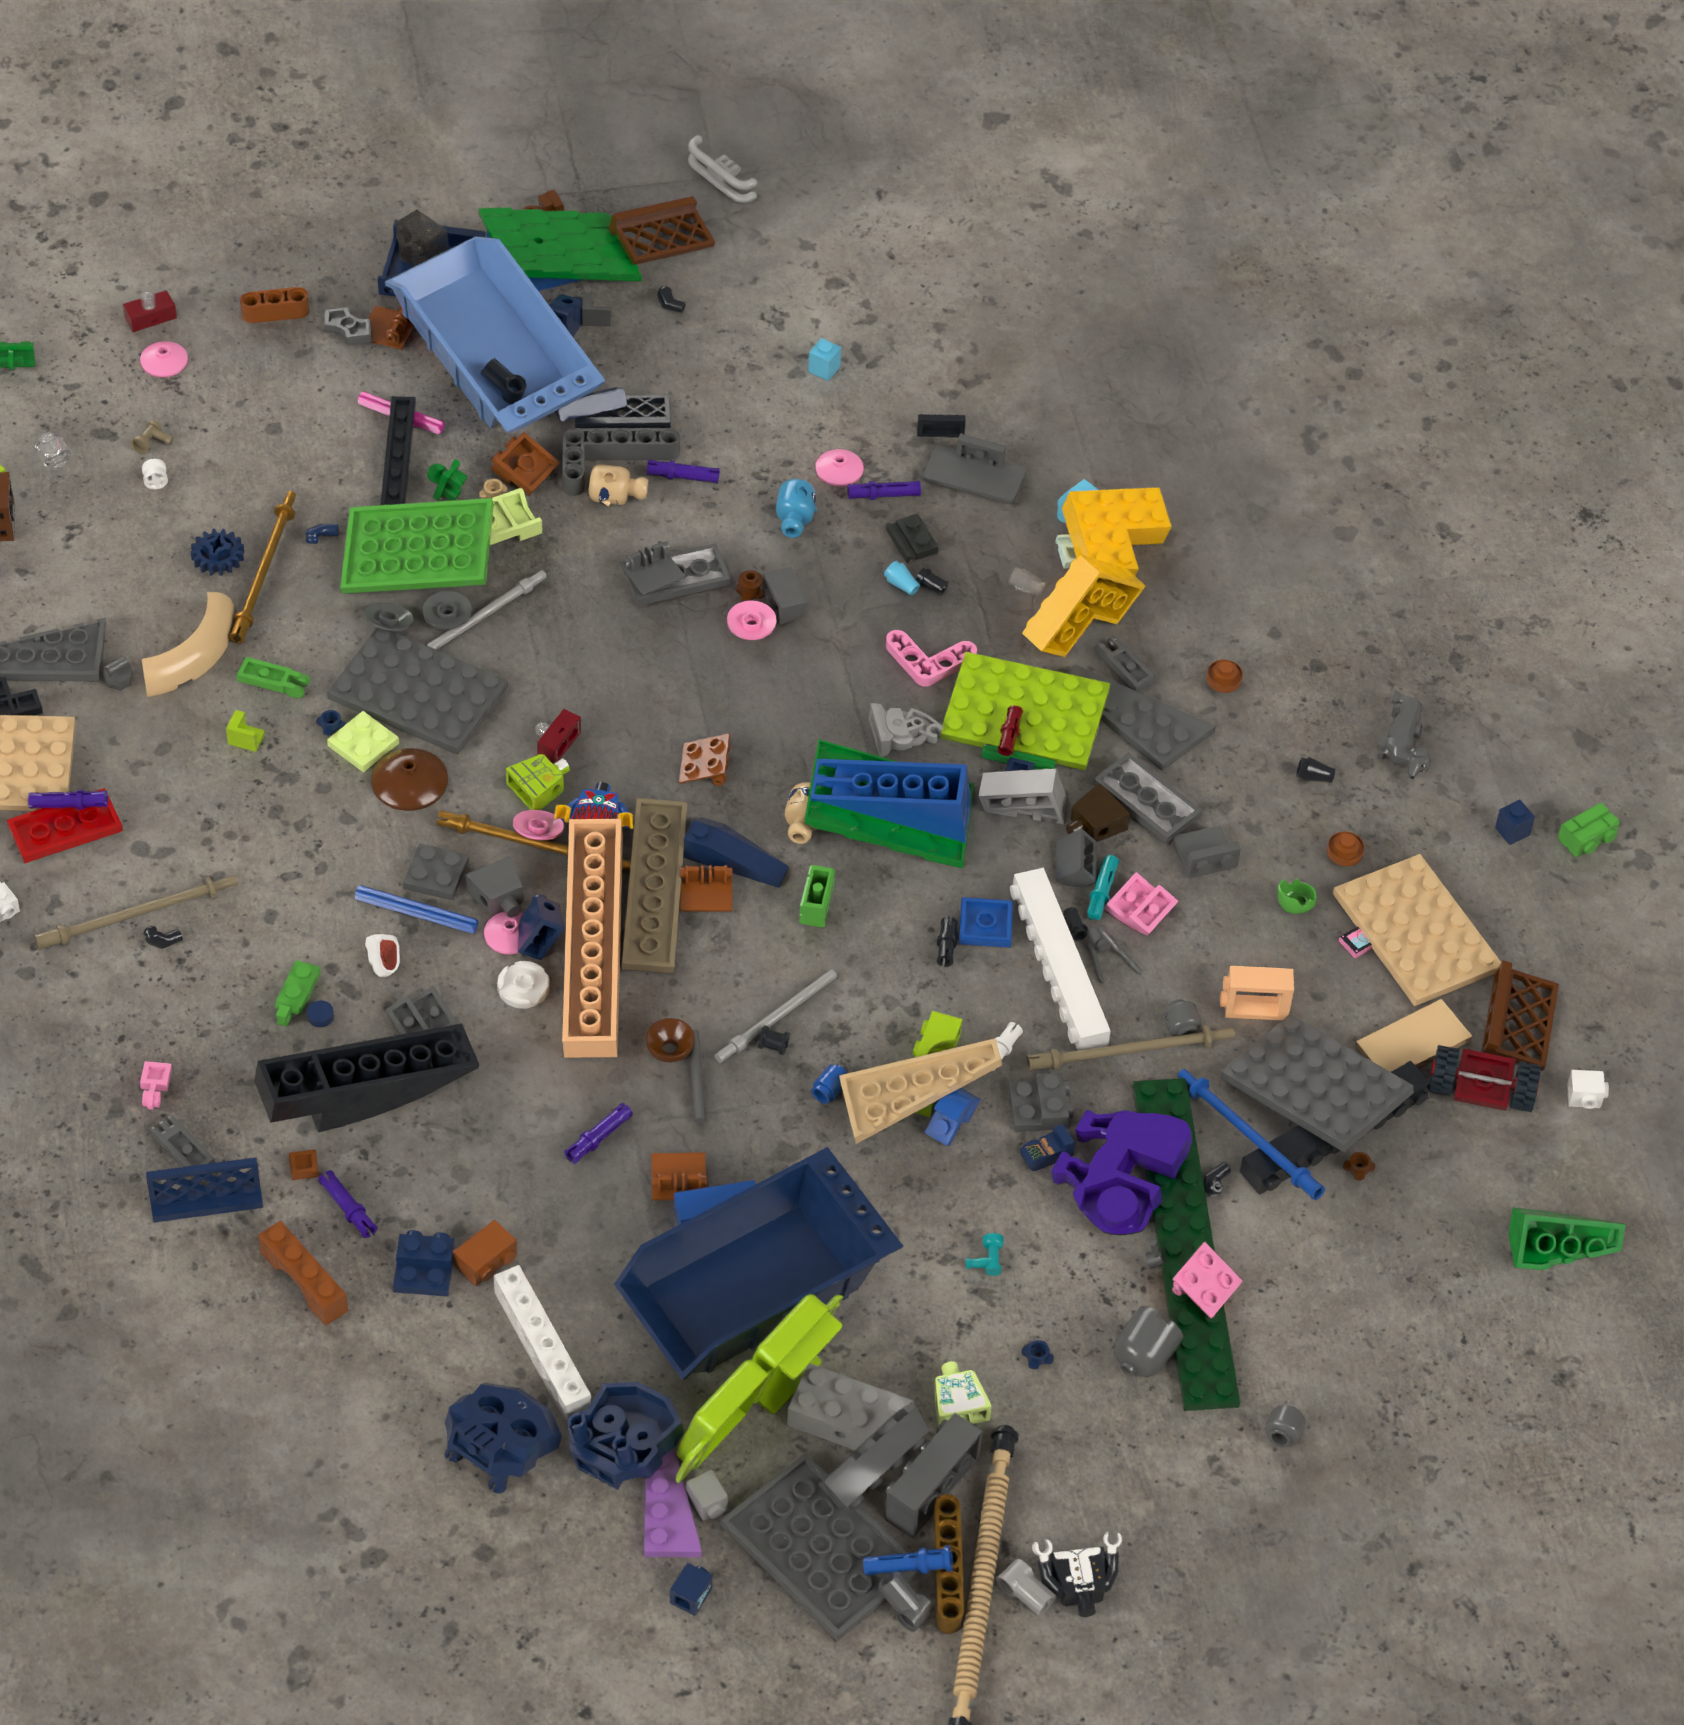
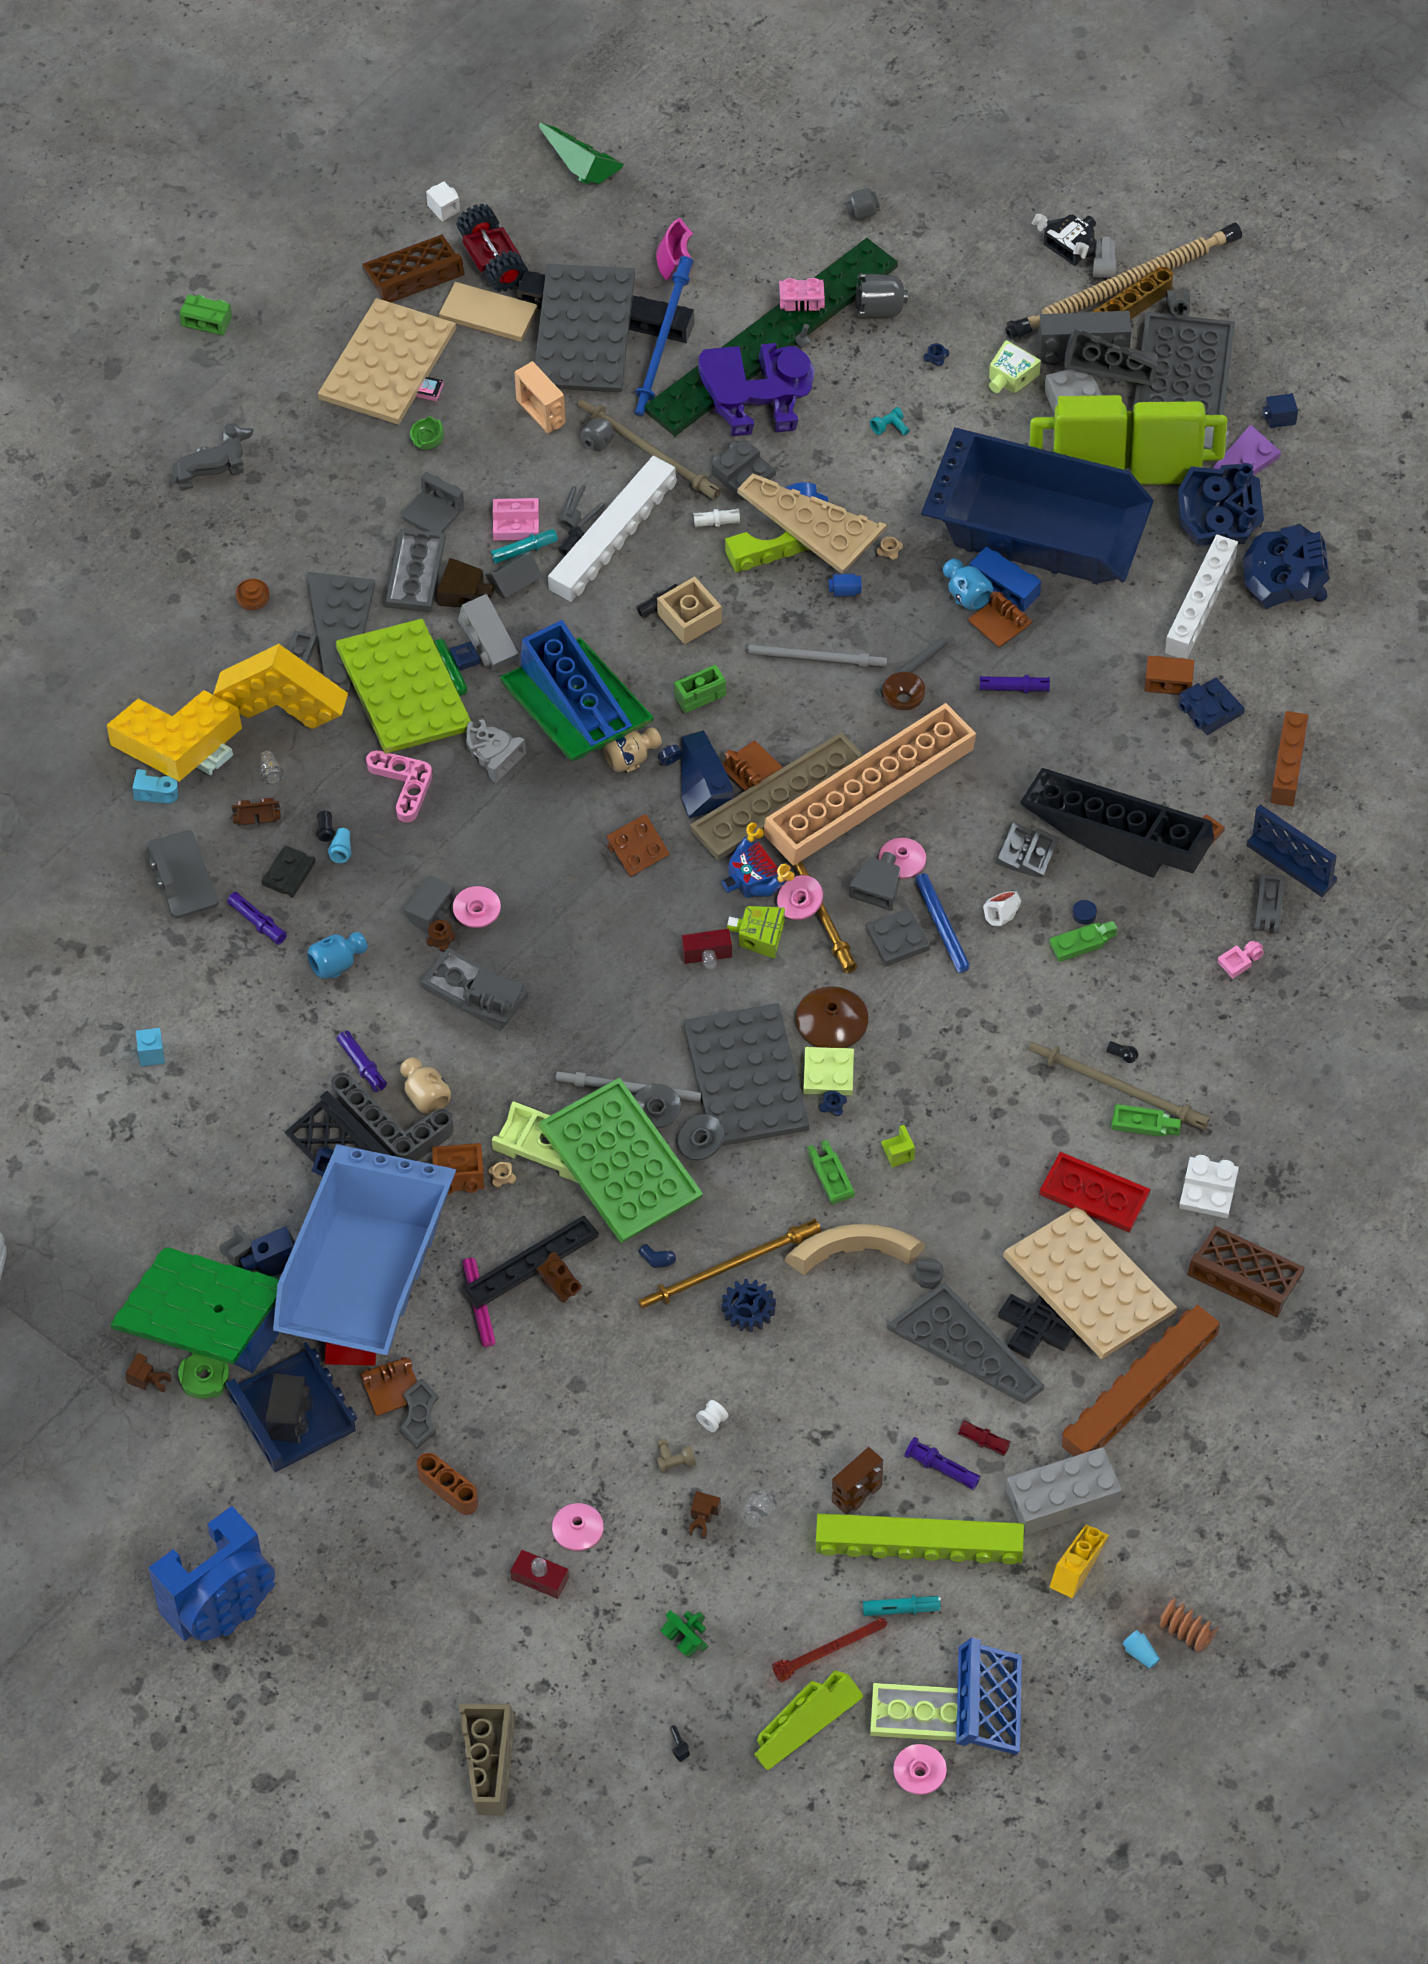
camera: 125 degrees left, 5 degrees up
(50, 201) = (489, 1746): none -> dark tan wedge
(68, 799) = (1071, 1186): dark purple pin -> none
(86, 902) = (1144, 1121): none -> bright green hinge
(90, 423) = (702, 1510): none -> reddish brown piece
(328, 120) = (221, 1589): none -> blue piece
(353, 1211) = (1214, 771): dark purple pin -> none
(366, 456) = (558, 1277): none -> reddish brown hips
(448, 481) = (530, 1196): green hips -> none
(502, 379) = (391, 1229): black piece -> none
(523, 984) = (938, 815): white tile -> none
(539, 927) = (889, 824): dark blue torso -> none
(654, 217) = (94, 1276): reddish brown fence -> none
(667, 300) = (175, 1210): black arm -> none
(735, 1164) = (967, 585): none -> dark azure piece
(773, 838) = (669, 755): none -> dark blue tile
(773, 1040) = (840, 636): black bush -> none
(839, 467) = (256, 977): bright pink dish -> none
(845, 1145) = (889, 548): none -> tan plate
(909, 945) = (689, 610): none -> tan brick
(922, 1560) = (1151, 299): blue pin -> none
(940, 425) = (153, 923): black tile -> none
(986, 922) = (620, 590): blue plate -> none
(992, 549) = (247, 810): none -> reddish brown hinge
(1010, 730) = (439, 670): dark red pin -> none
(1047, 1148) = (776, 441): dark blue leg -> none
(1213, 1178) = (717, 342): black arm -> none
(1313, 770) = (297, 493): black cone -> none
(1345, 848) = (354, 434): dark orange plate -> none
(1359, 1218) = (672, 248): none -> dark pink brick
(1514, 822) = (239, 355): dark blue brick -> none

